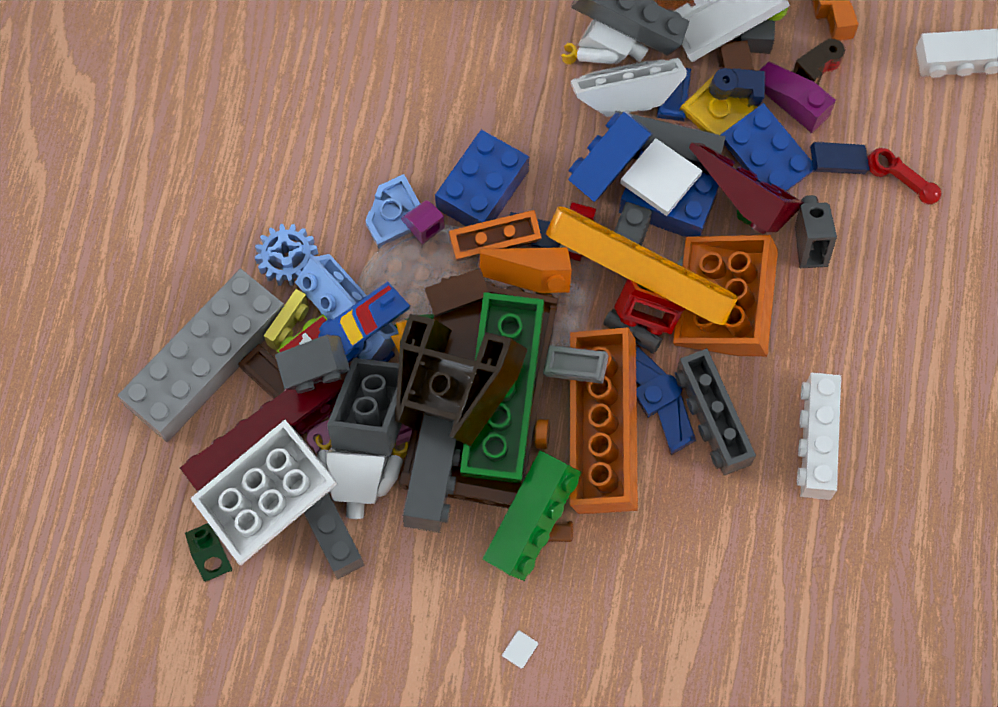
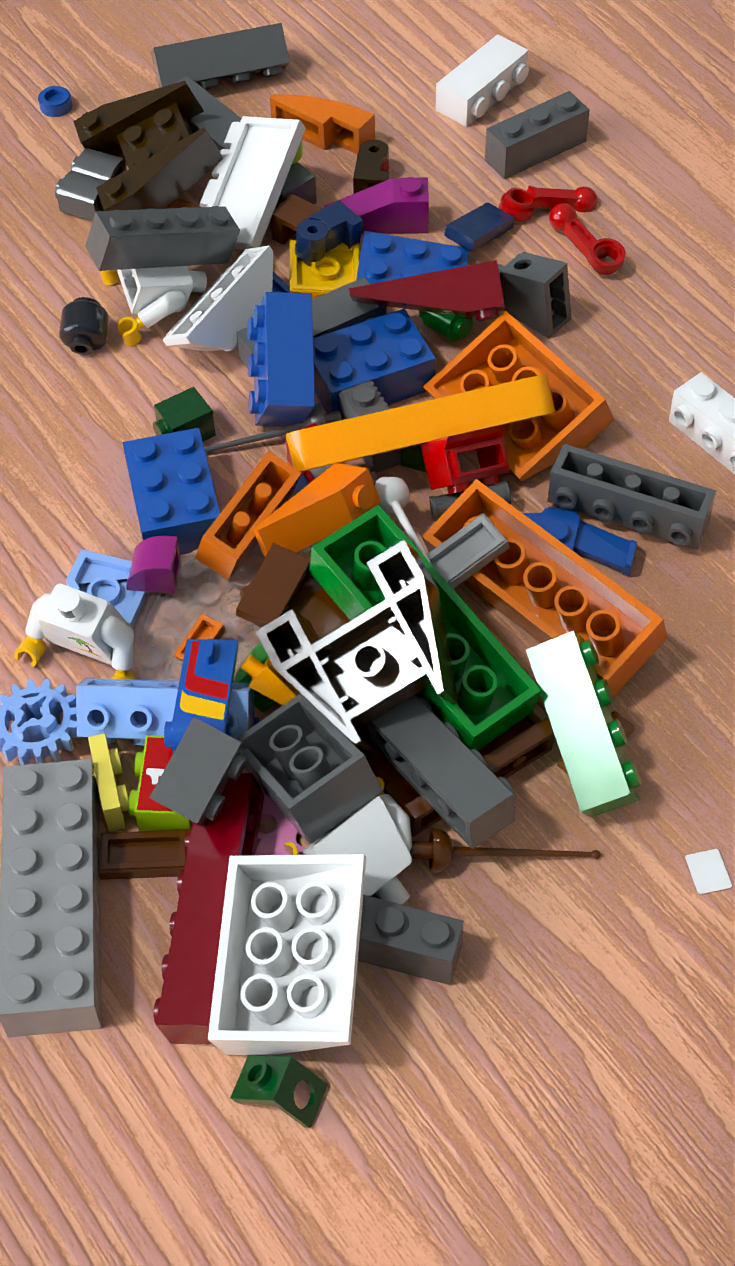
camera: 45 degrees left, 15 degrees down
(352, 227) = (82, 625): none -> white torso
(396, 514) = (441, 851): none -> reddish brown sword
(407, 283) = (203, 628): none -> orange piece
(535, 140) = (184, 412): none -> dark green brick
(546, 29) = (84, 325): none -> black head
(584, 293) = (394, 497): none -> white sword
(604, 206) = (315, 415): none -> dark grey sword
(661, 177) = (353, 338): white tile -> none
(897, 197) = (564, 219): none -> red piece
(948, 123) = (536, 134): none -> dark grey brick

